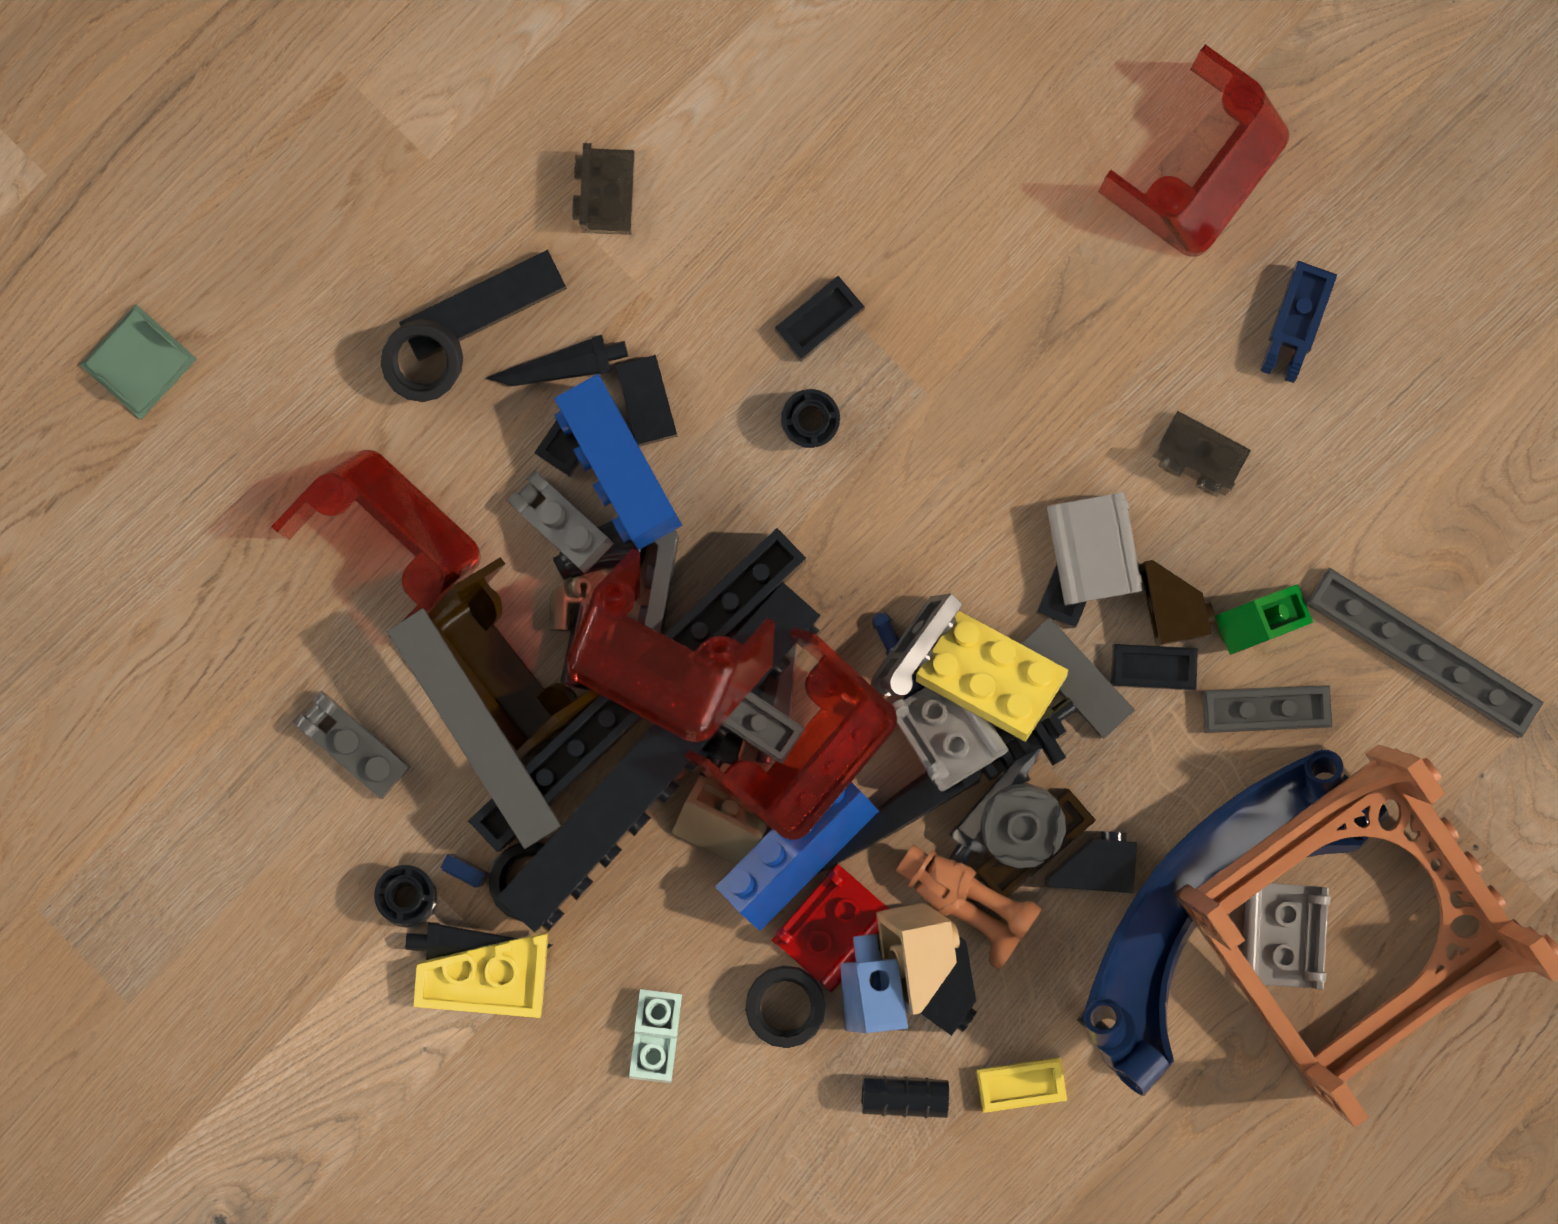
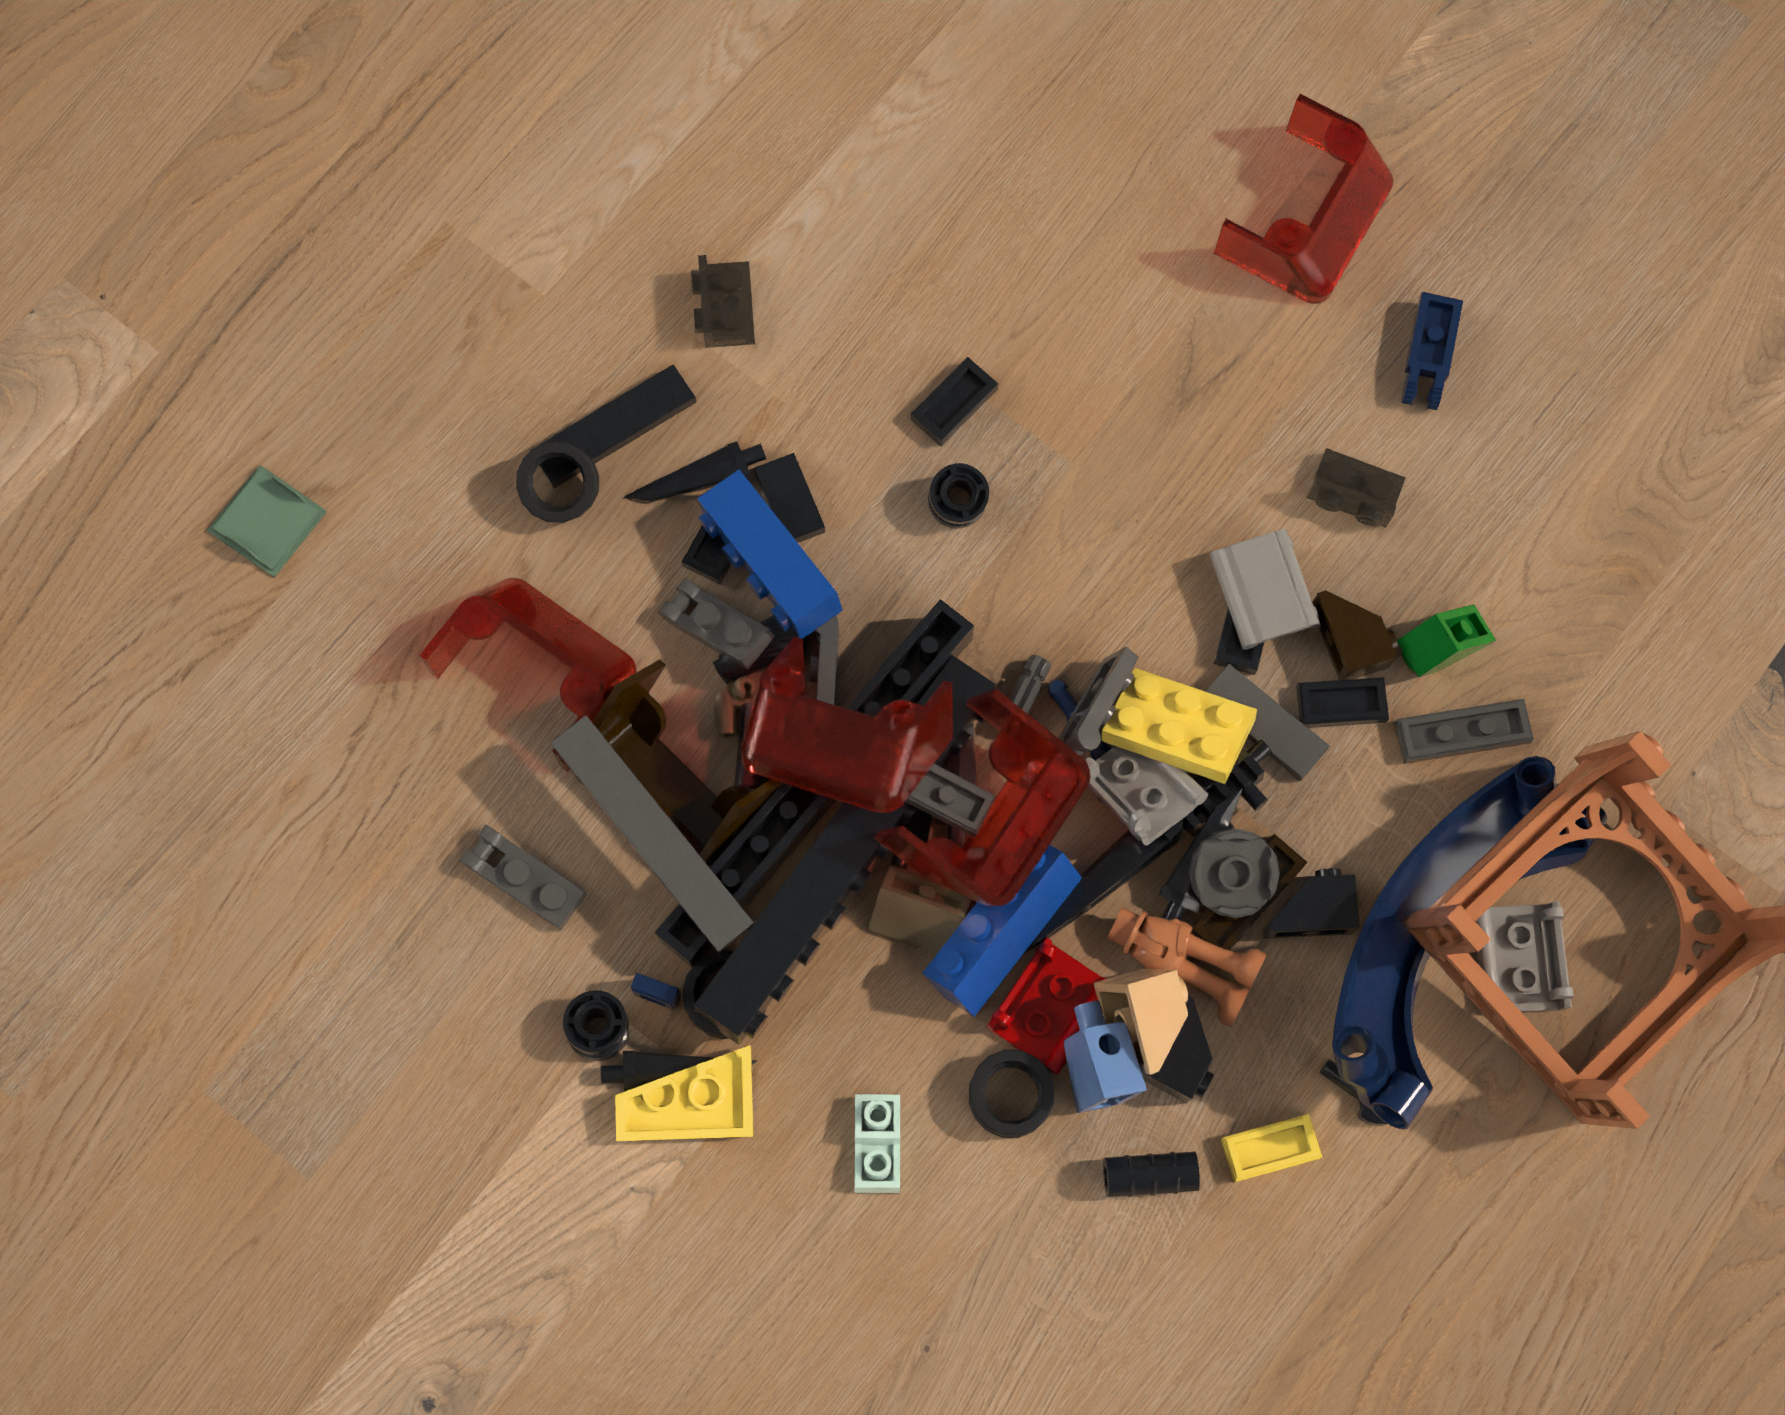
camera: 10 degrees left, 10 degrees down
(851, 619) = (1029, 683): none -> dark grey axle
(1424, 653) = (1614, 657): dark grey tile -> none

